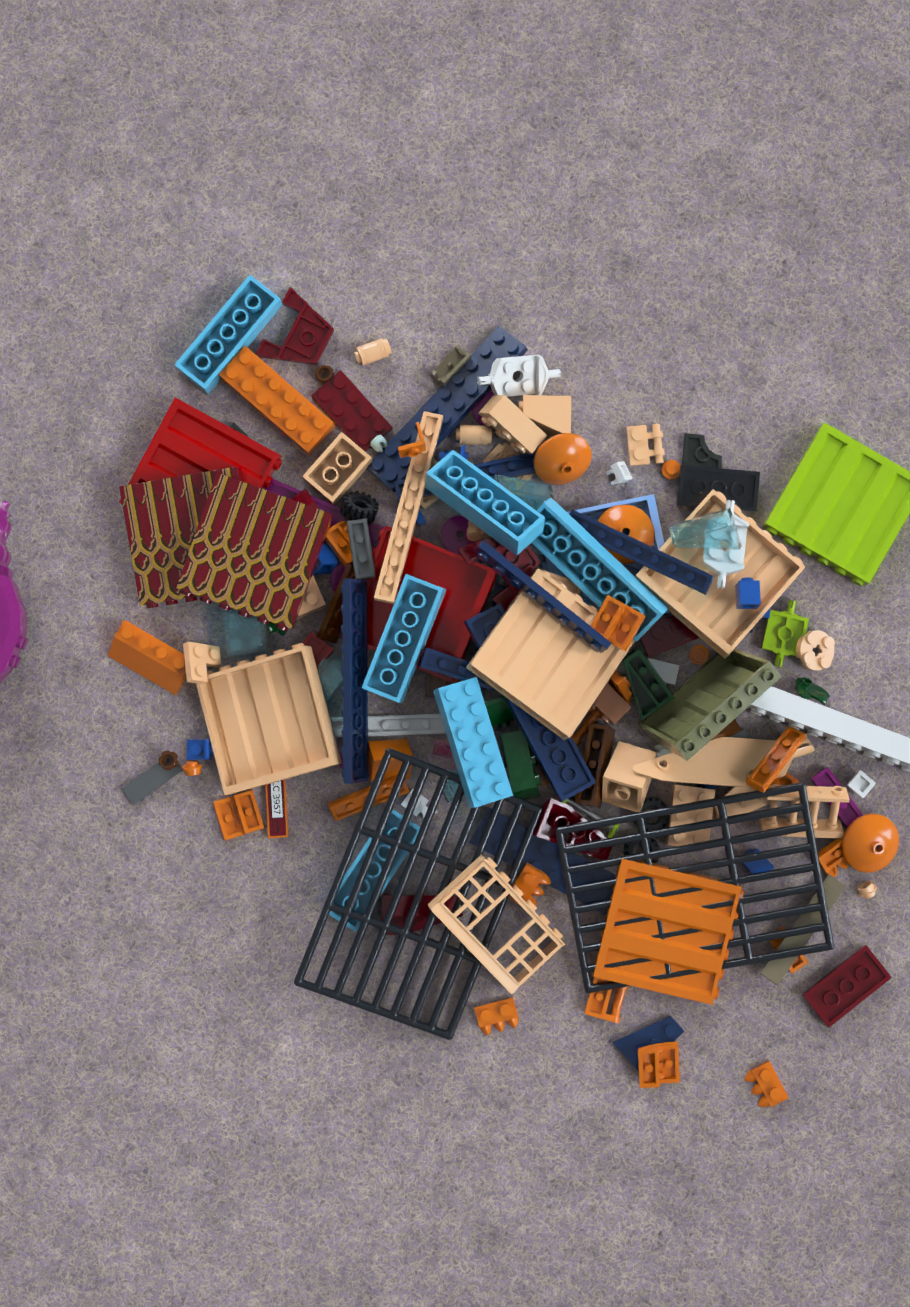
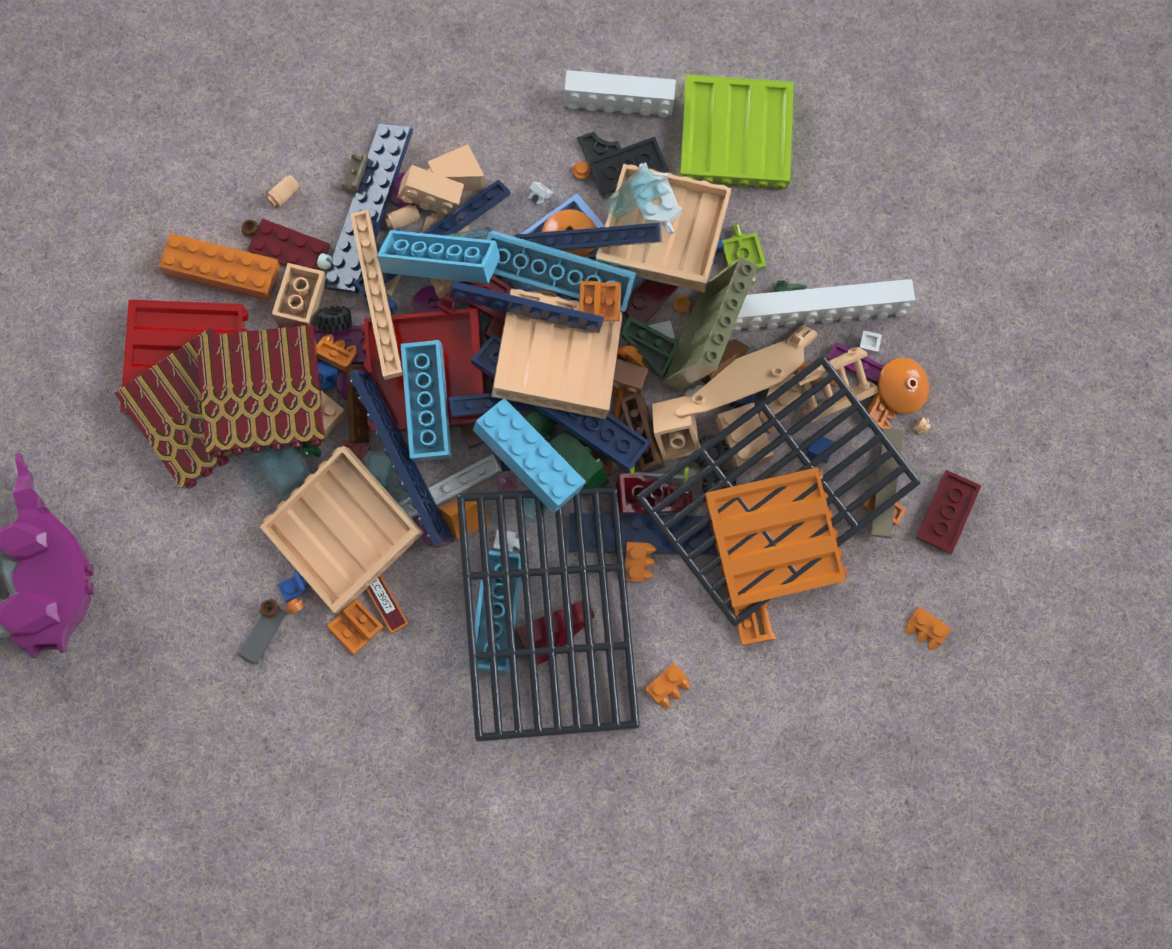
camera: 30 degrees left, 10 degrees down
(149, 657) = (211, 529): orange slope -> none
(197, 657) = (256, 508): light nougat plate -> none
(228, 333) = (149, 231): medium azure brick -> none
(306, 338) = (220, 206): dark red wing -> none
(354, 802) = (452, 565): orange tile -> none
(361, 549) = (352, 347): dark grey tile -> none
(414, 448) = (357, 243): orange bracket -> none
(474, 945) = (619, 630): light nougat window -> none
(532, 377) = (425, 143): white plate -> none
(562, 459) = (479, 196): orange dish -> none
(638, 445) = (544, 164): light nougat plate -> none
(658, 1032) = (809, 643): dark blue wing -> none
(658, 1064) = (828, 655): orange slope -> none
(748, 410) = (619, 93): none -> white brick
(748, 593) = (696, 228): blue brick -> none
(775, 759) = (789, 351): orange tile -> none
(825, 650) = (783, 251): light nougat plate -> none

